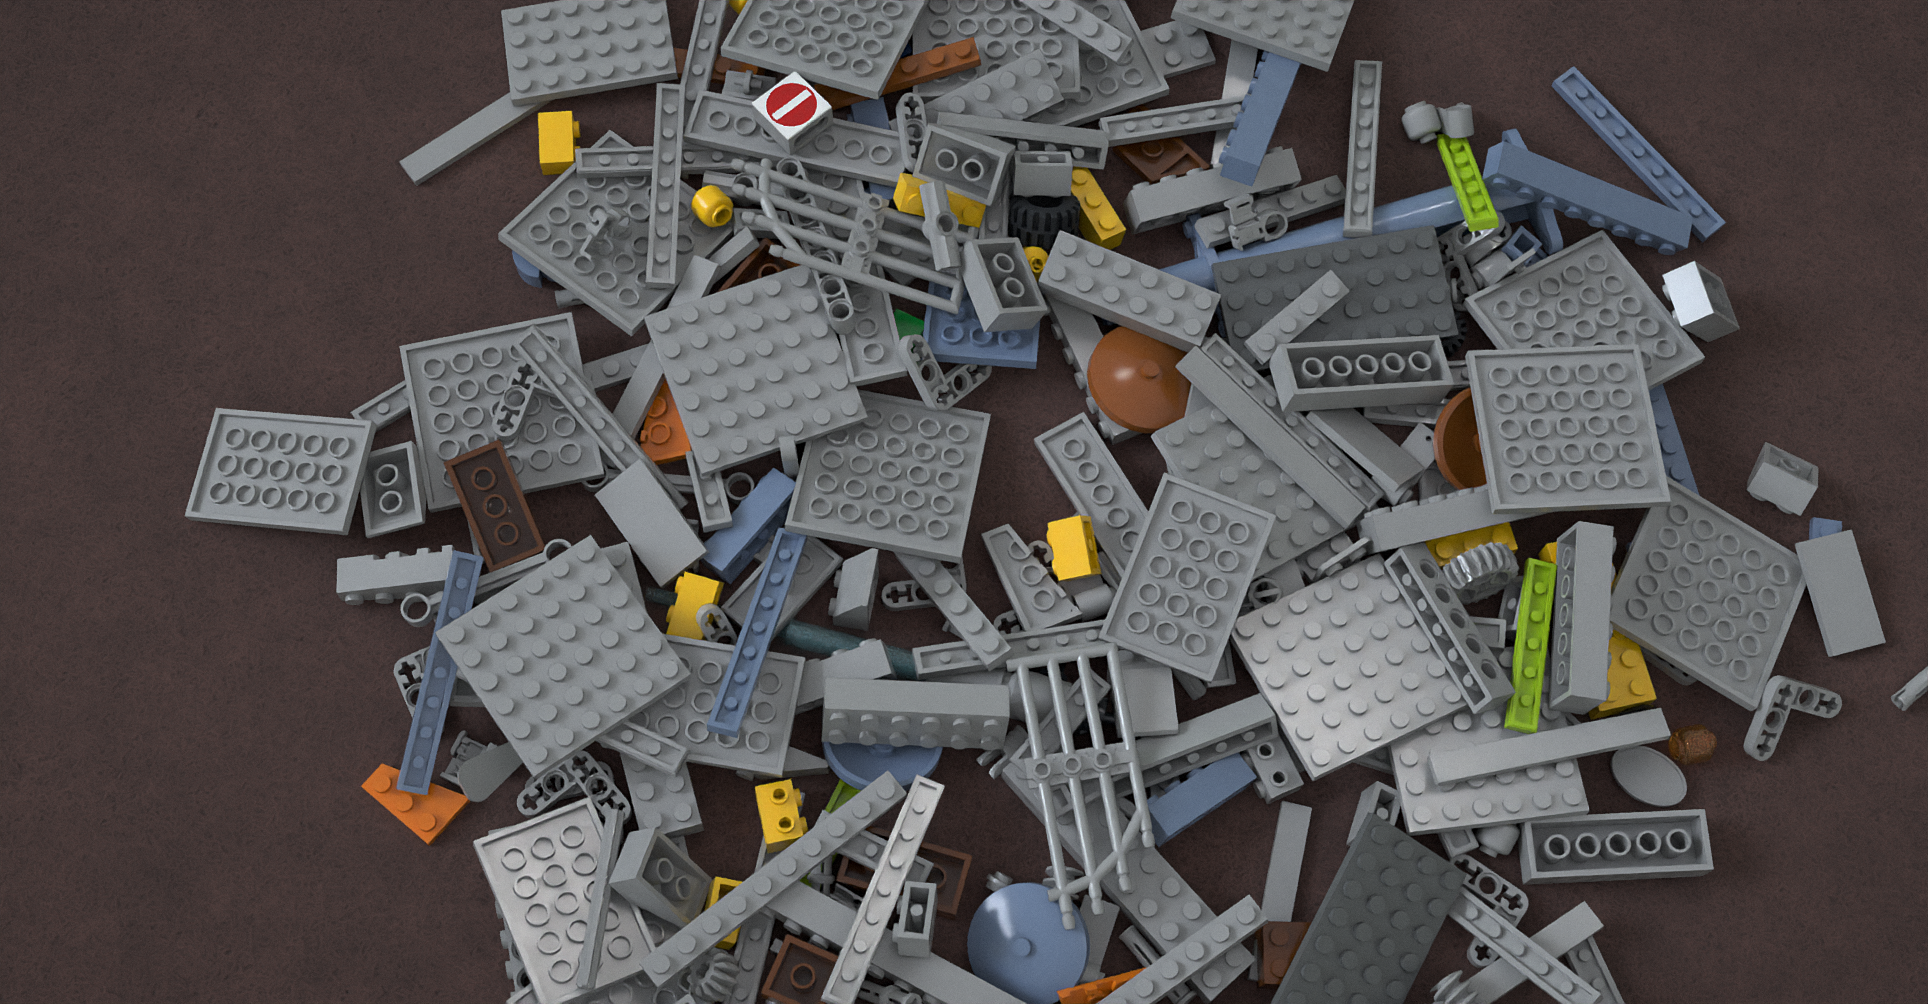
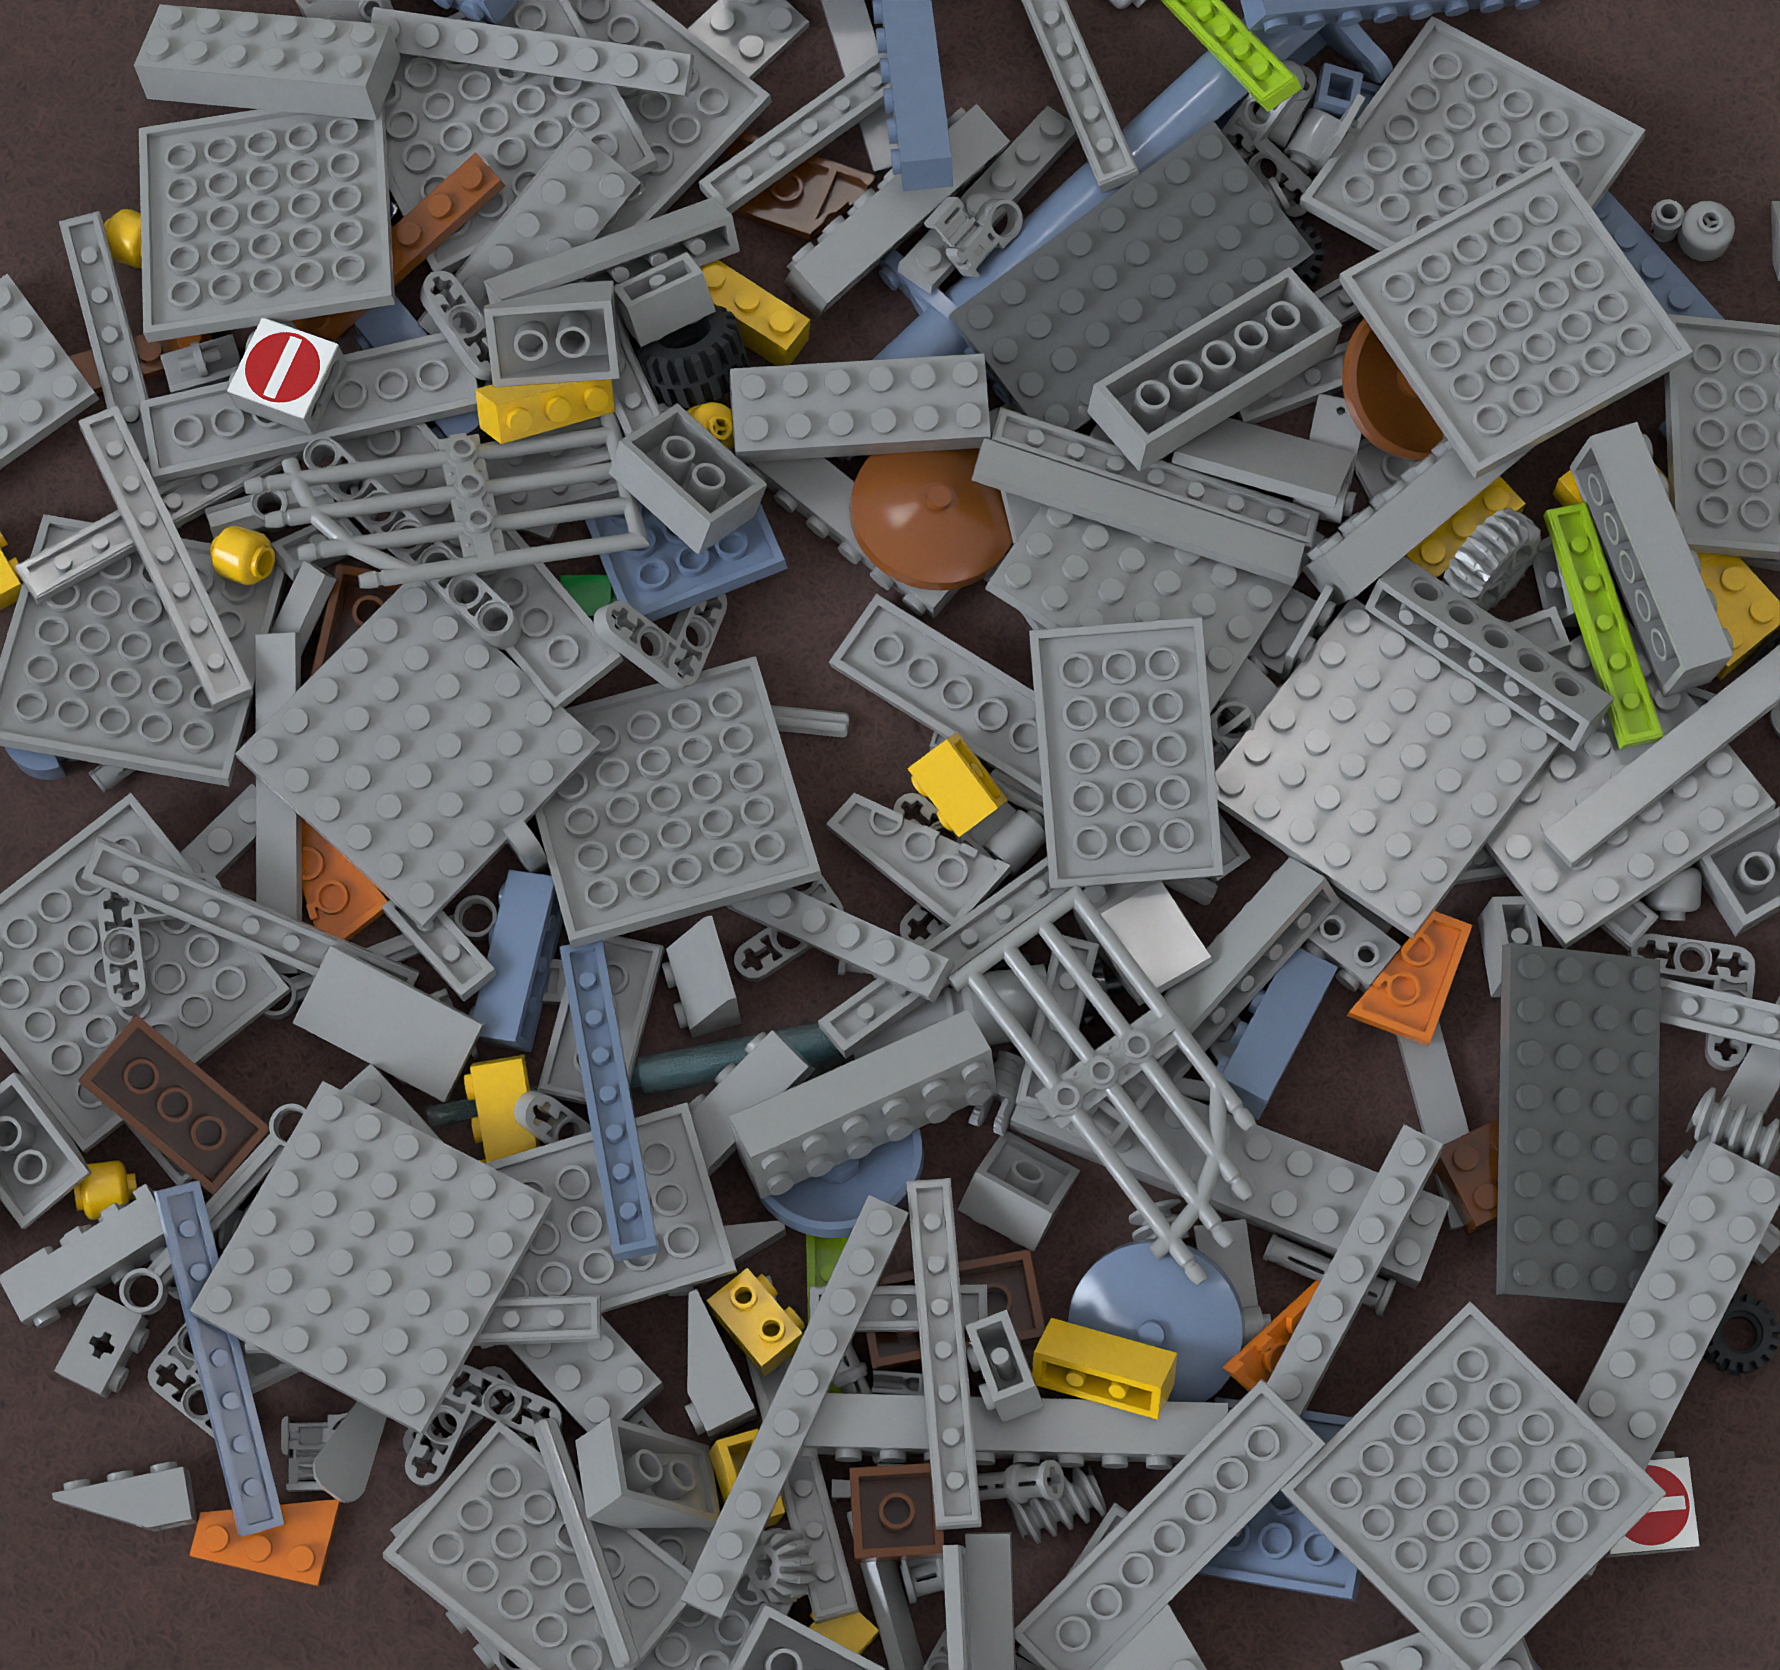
camera: 20 degrees left, 5 degrees up
(355, 740) = (146, 1501): none -> light grey slope
(362, 633) = (104, 1323): none -> light grey brick
(429, 535) = (104, 1187): none -> yellow head
(609, 224) = (117, 652): light grey piece -> none
(733, 839) = (712, 1380): none -> light grey slope
(937, 210) = (556, 420): light grey piece -> none
(981, 953) = (1104, 1368): none -> yellow brick
(985, 817) = (1018, 1190): none -> light grey slope
(998, 881) = (1076, 1264): light grey plate -> none
(1004, 469) = (811, 721): none -> light grey axle
(1296, 316) = (1095, 334): light grey plate -> none
(1301, 812) = (1416, 981): none -> orange wing
(1693, 418) = (1666, 219): none -> light grey pin
(1699, 302) = (1604, 57): light grey brick -> none
(1714, 438) = (1706, 231): none -> light grey head

